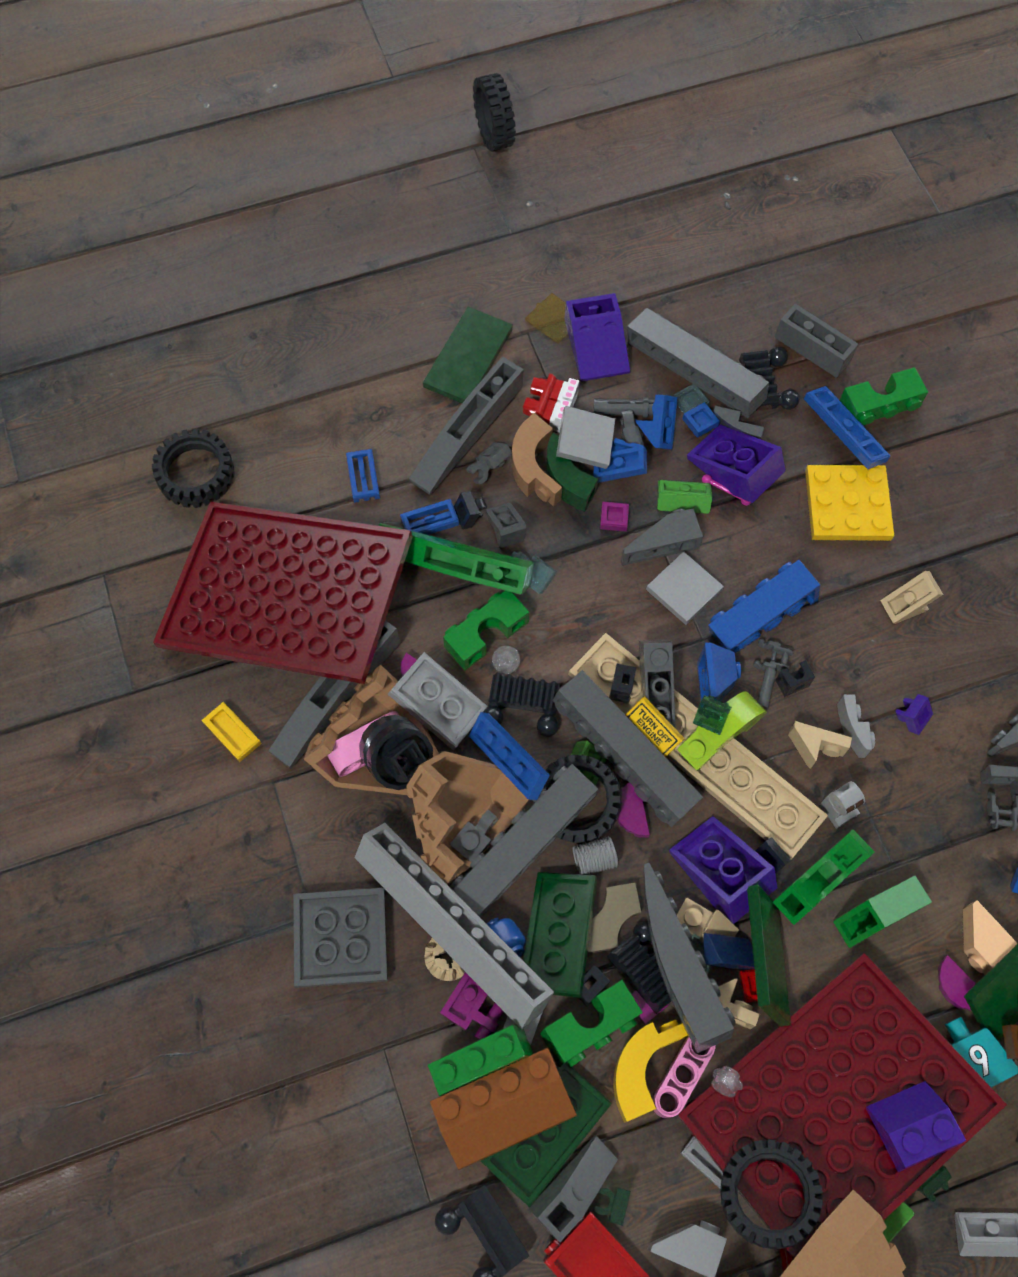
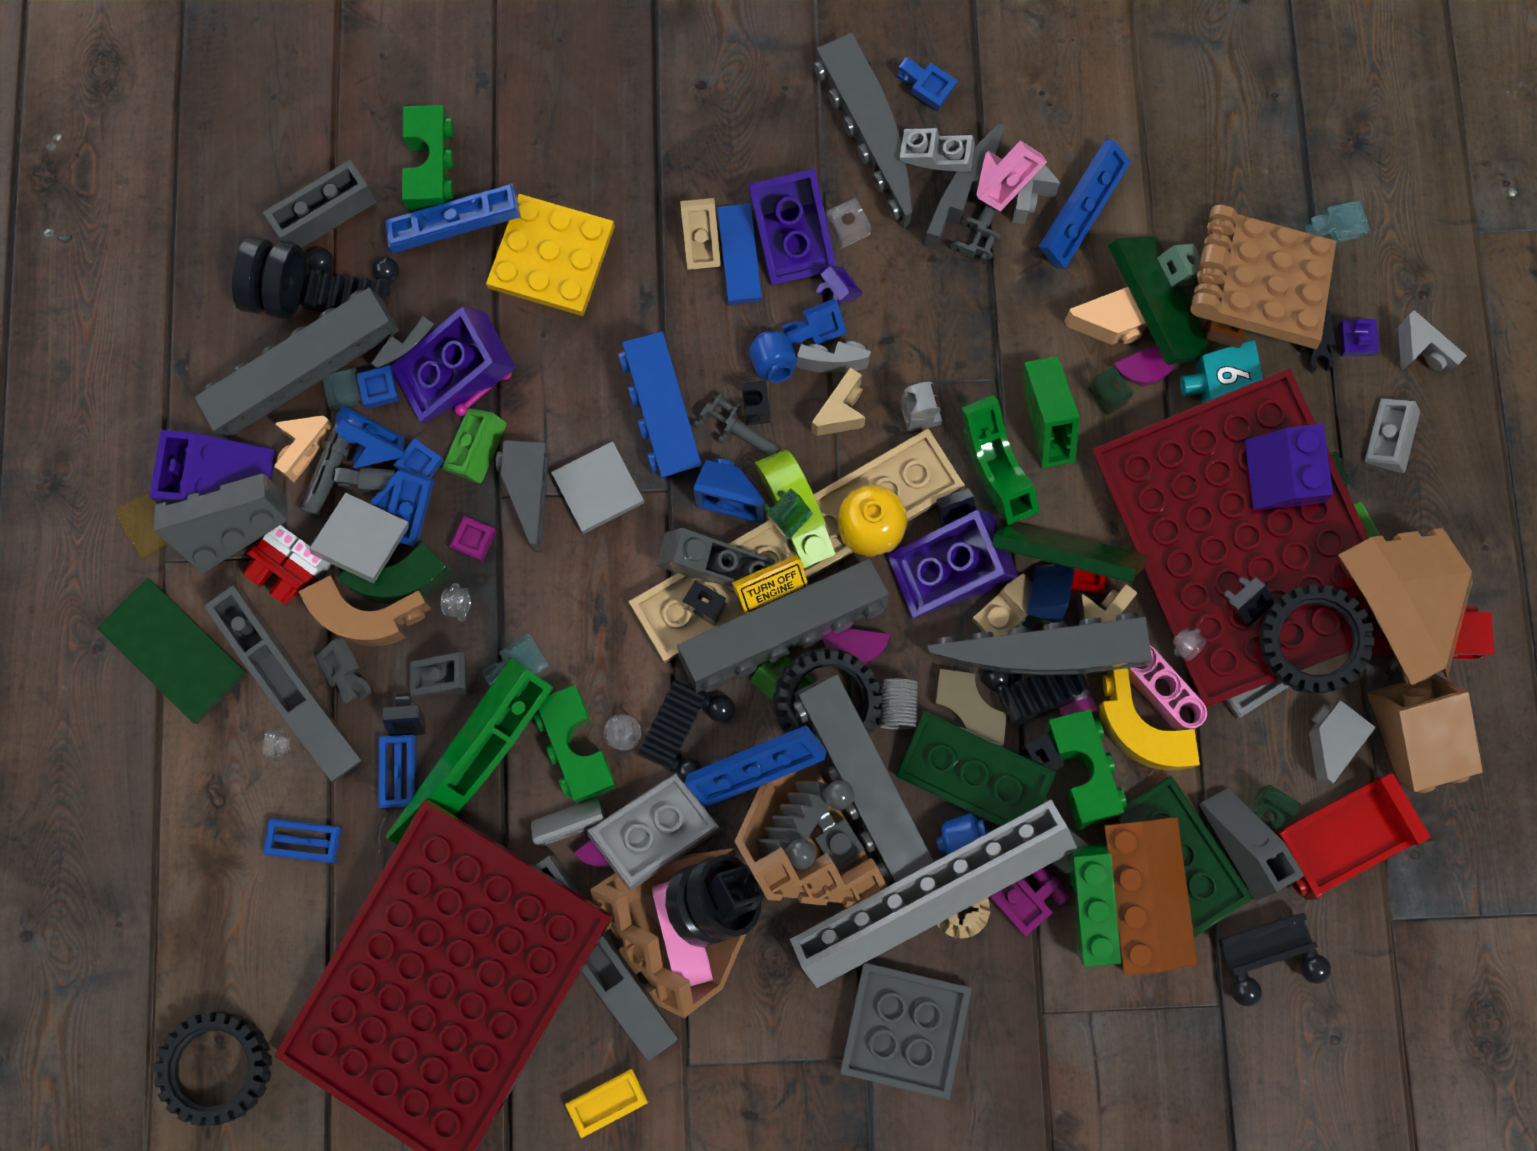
camera: 70 degrees left, 10 degrees up
(424, 436) = (276, 743): none -> clear plate
(426, 640) = (567, 822): none -> light grey slope
(479, 800) = (802, 817): none -> dark grey gear
(563, 517) = (455, 602): none -> clear plate
(565, 349) = (221, 522): none -> dark grey wedge
(638, 387) = (308, 438): none -> light nougat slope
(658, 462) = (419, 459): none -> blue plate
(734, 790) = (872, 520): none -> yellow cylinder
(750, 323) = (268, 277): none -> black wheel
(783, 1124) = (1250, 601): none -> black tile
(837, 680) = (773, 356): none -> blue head
(879, 708) = (820, 324): none -> blue plate
(908, 633) = (739, 254): none -> blue tile
(922, 949) = (1107, 394): none -> clear green piece
(949, 662) = (792, 225): none -> dark purple slope
(972, 714) = (844, 232): none -> clear piece

